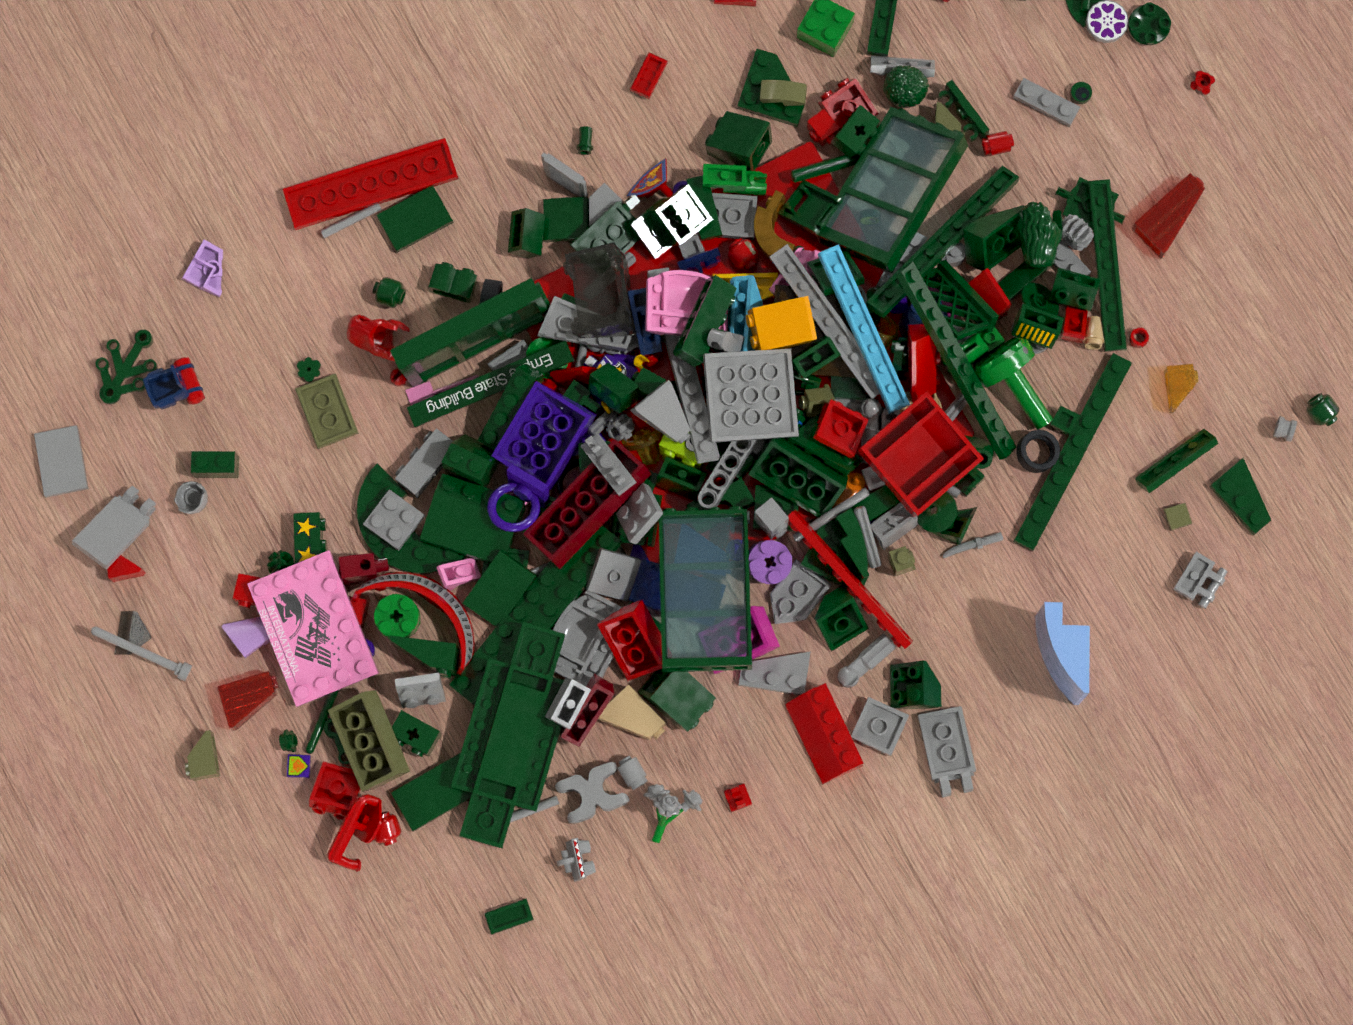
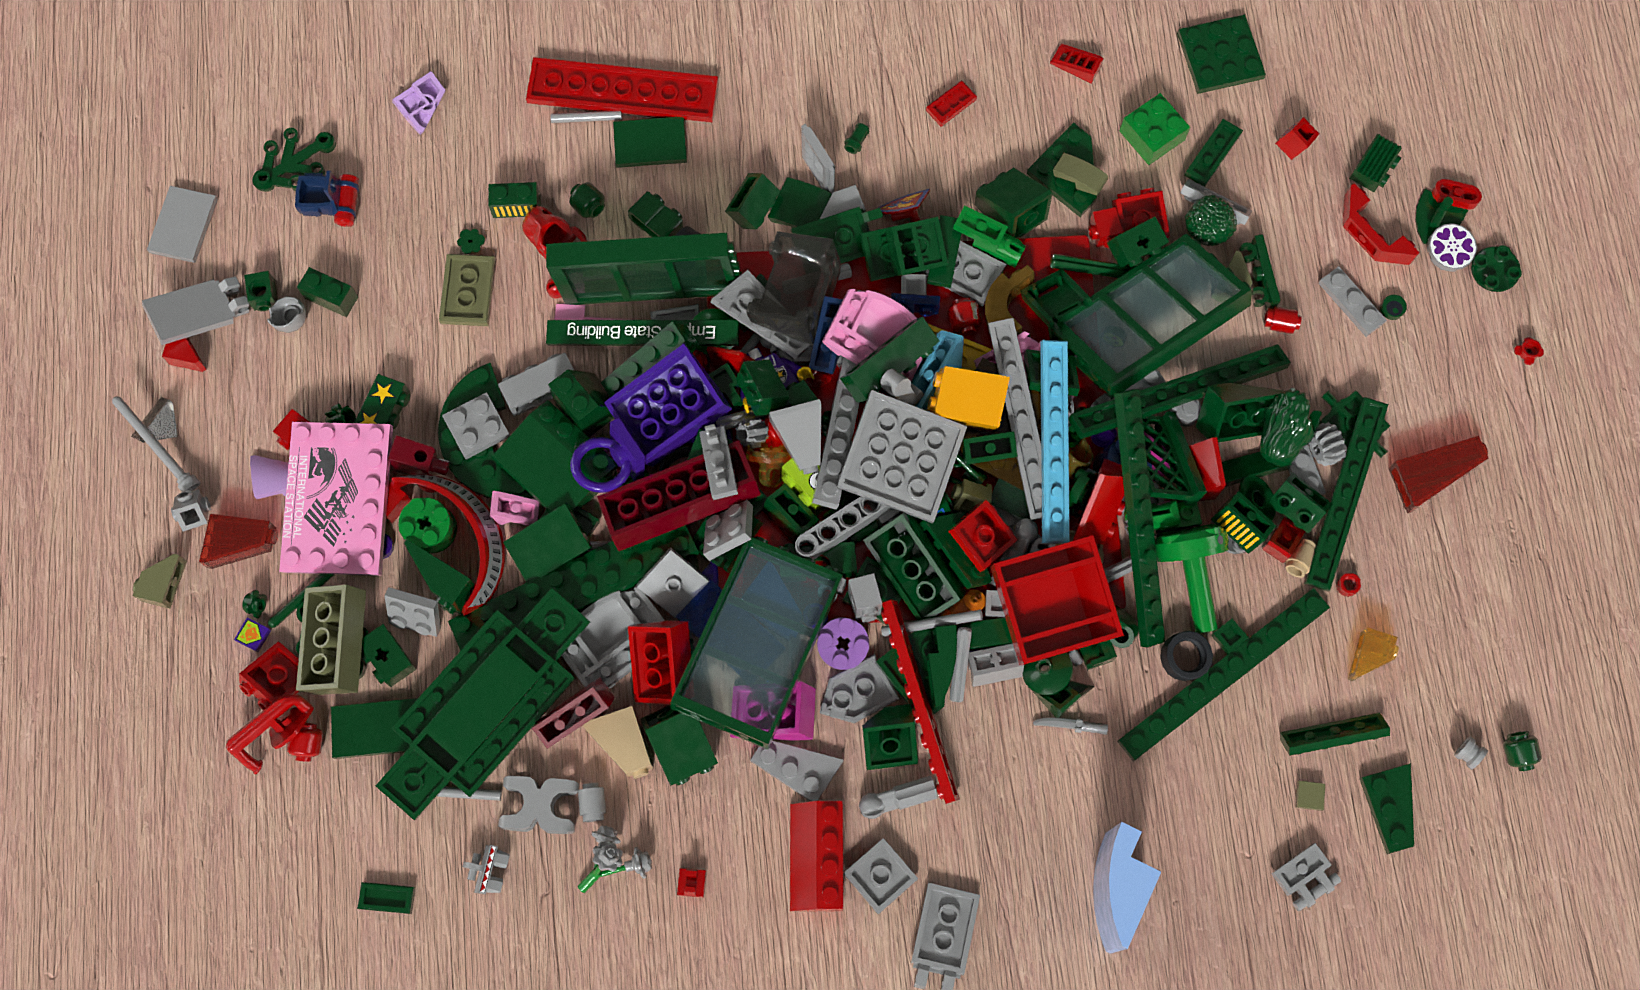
camera: 20 degrees right, 5 degrees down
(152, 482) = (257, 282): none -> dark green brick
(198, 690) = (190, 509): none -> light grey brick
(328, 319) = (513, 199): none -> dark green brick
(567, 703) = (554, 695): light grey brick -> none
(901, 560) = (986, 707): olive brick -> none
(914, 686) = (938, 849): dark green slope -> none
(1068, 43) = (1400, 252): none -> red slope

